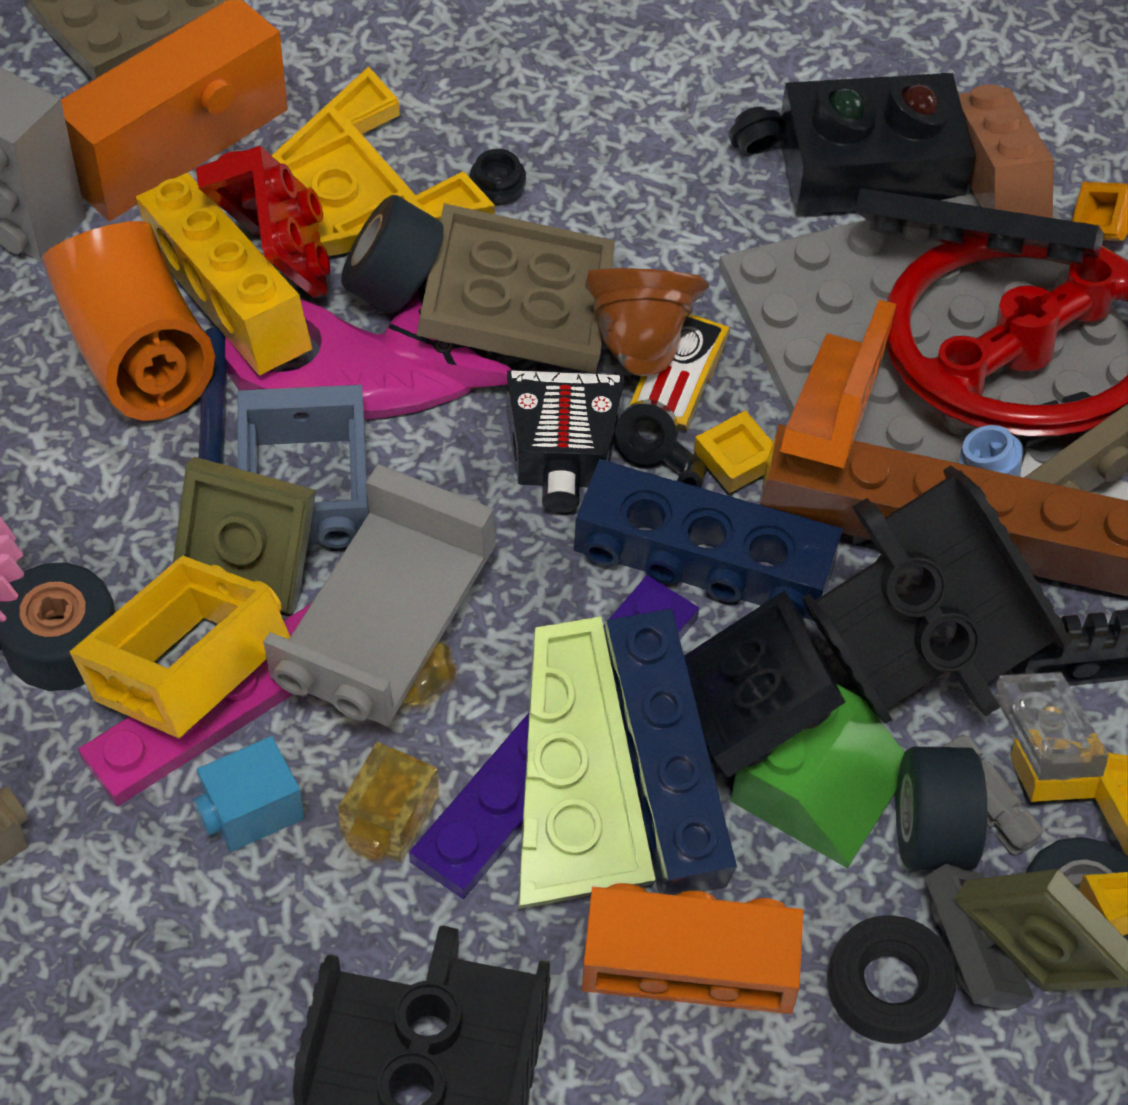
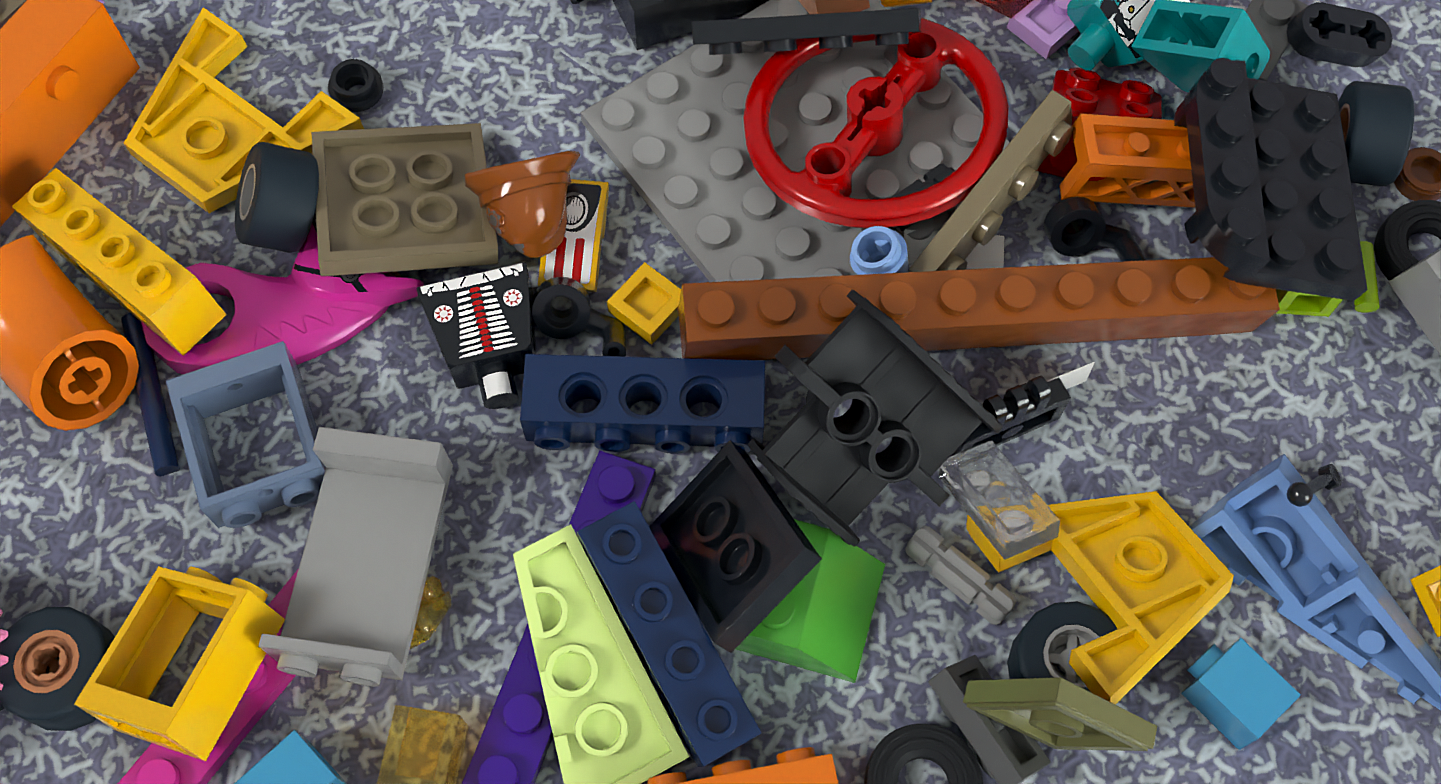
camera: 15 degrees left, 10 degrees up
(246, 525) = (211, 523): olive tile -> none
(276, 206) = (157, 185): red bracket -> none
(838, 393) = (727, 238): orange fence -> none
(941, 808) = (926, 612): black wheel -> none

